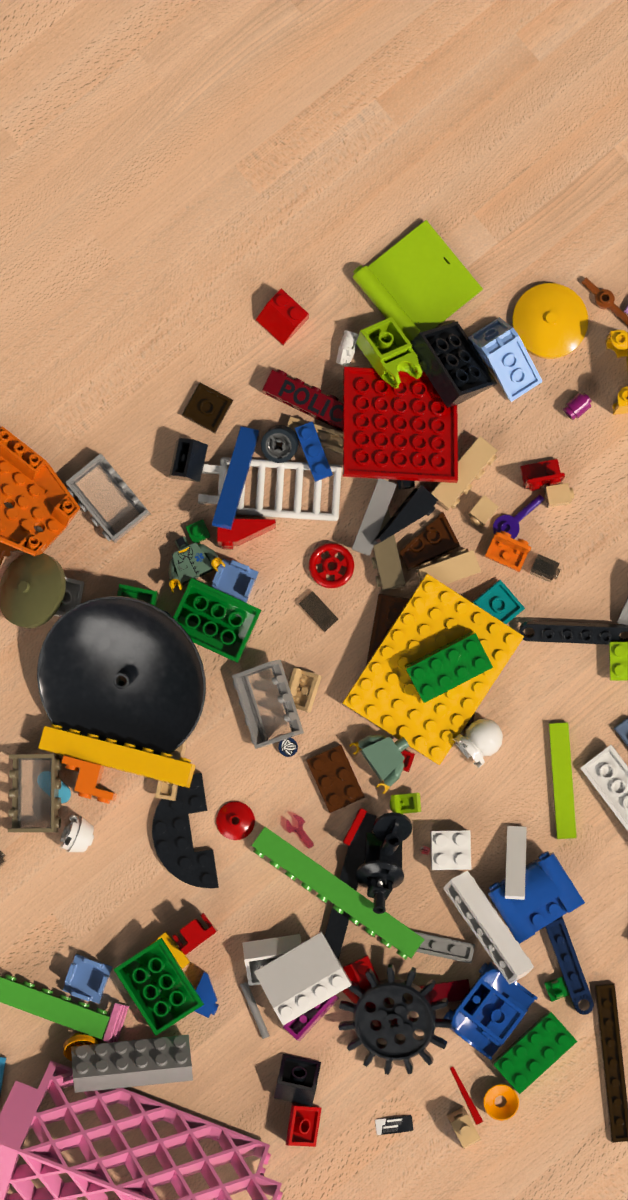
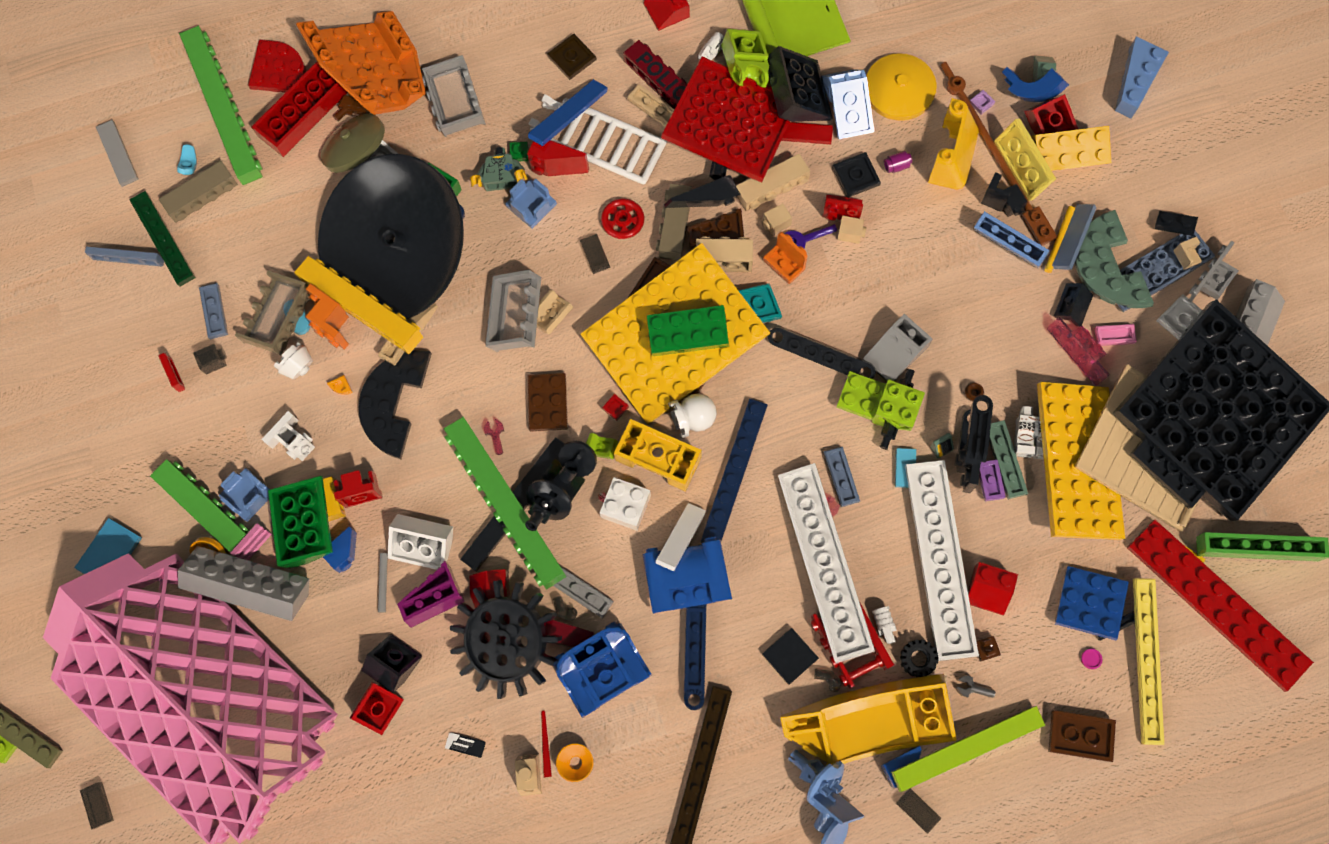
camera: 30 degrees right, 10 degrees down
(96, 907) = (284, 432): none -> white tile
(128, 839) = (340, 385): none -> light orange tile
(188, 460) = (534, 85): black slope -> none
(216, 620) = (499, 224): green slope -> none
(245, 824) = (446, 413): red dish -> none
(280, 434) = (627, 106): wheel -> none
(288, 747) = (517, 358): tile -> none
(302, 978) = (433, 564): white slope -> none
(313, 451) = (646, 118): blue plate -> none
(354, 827) = (545, 448): red tile -> none
(374, 516) = (676, 185): light grey tile -> none
(383, 757) = (597, 396): sand green torso -> none
(433, 971) = (563, 611): none -> clear smoke arm
(443, 789) = (676, 463): none -> yellow plate
(480, 405) = (808, 133): none -> red tile
(488, 927) = (630, 587): white brick -> none
(534, 1052) = (626, 726): green brick -> none
(538, 778) = (735, 470): none -> dark blue plate
(541, 433) = (856, 175): none -> black tile
(545, 568) = (814, 287): clear smoke brick -> none
(556, 989) = (673, 674): green tile -> none
(562, 781) = (756, 482): lime tile -> none

